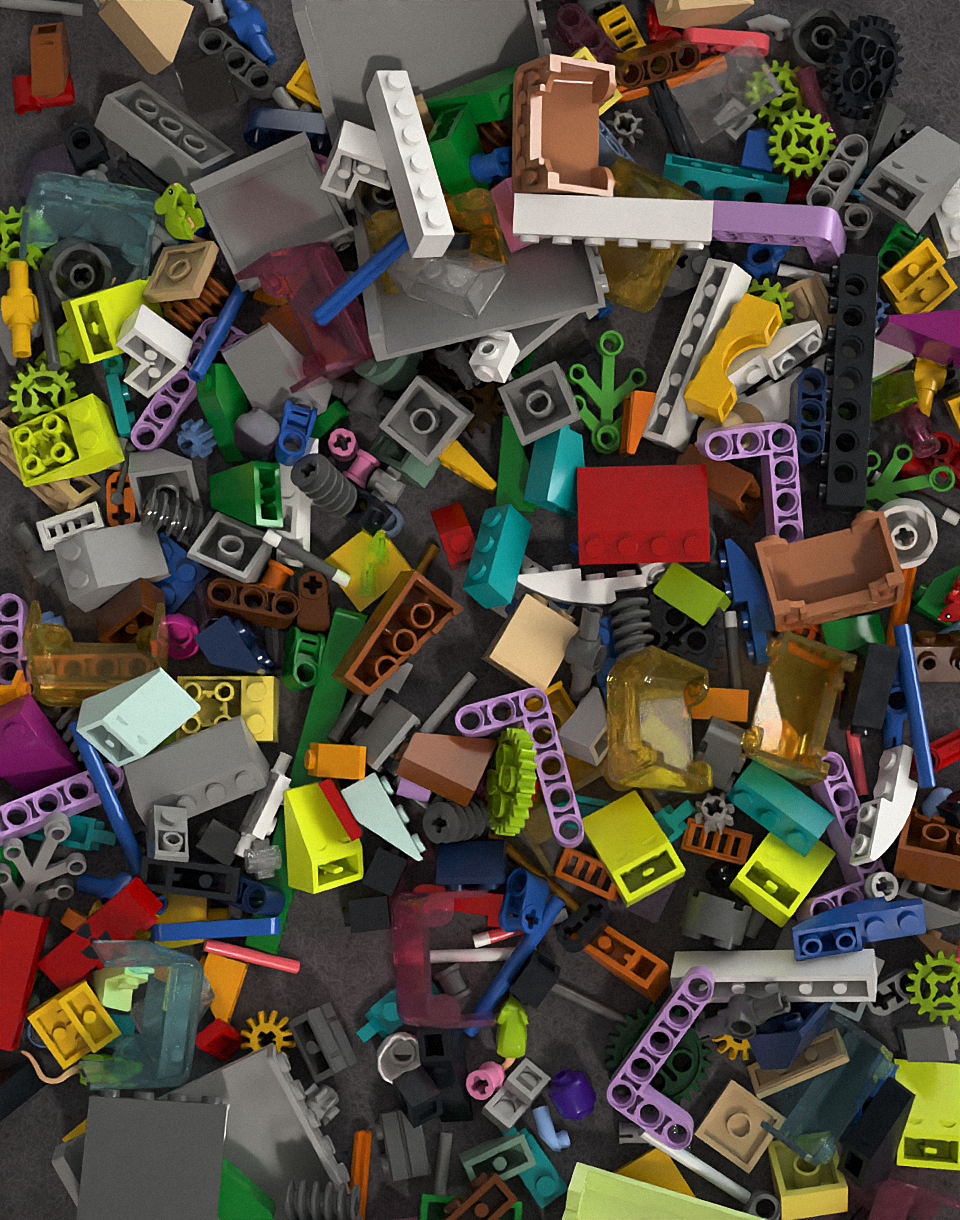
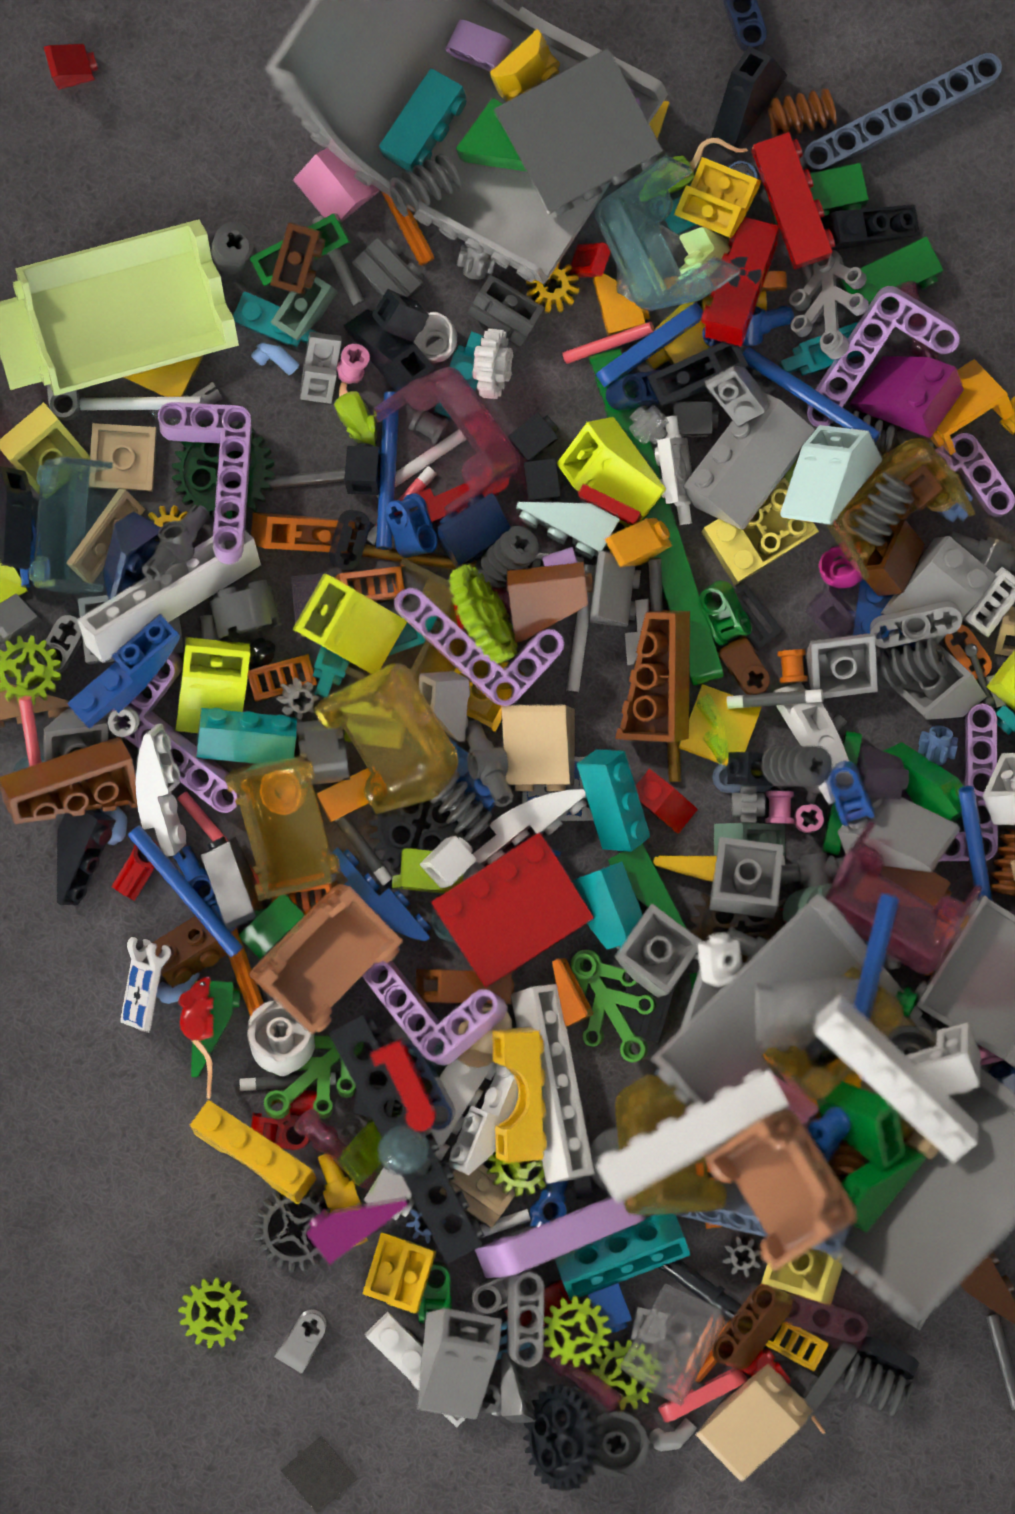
camera: 145 degrees right, 5 degrees up
(67, 654) = (925, 489): none -> reddish brown plate
(109, 655) = (883, 510): none -> dark grey piece
(142, 533) = (908, 636): none -> light grey beam
(232, 647) = (784, 583): dark blue slope -> none
(249, 493) = (856, 719): green slope -> none
(266, 598) = (785, 641): reddish brown beam -> none
(359, 238) = (907, 1001): none -> green plate
(363, 1001) = (492, 363): none -> white gear
(572, 1094) = (274, 396): dark purple head -> none
(671, 590) = (448, 861): none -> white brick
(823, 420) = (408, 1082): none -> red leg
(861, 368) = (403, 1150): none -> clear light blue hair

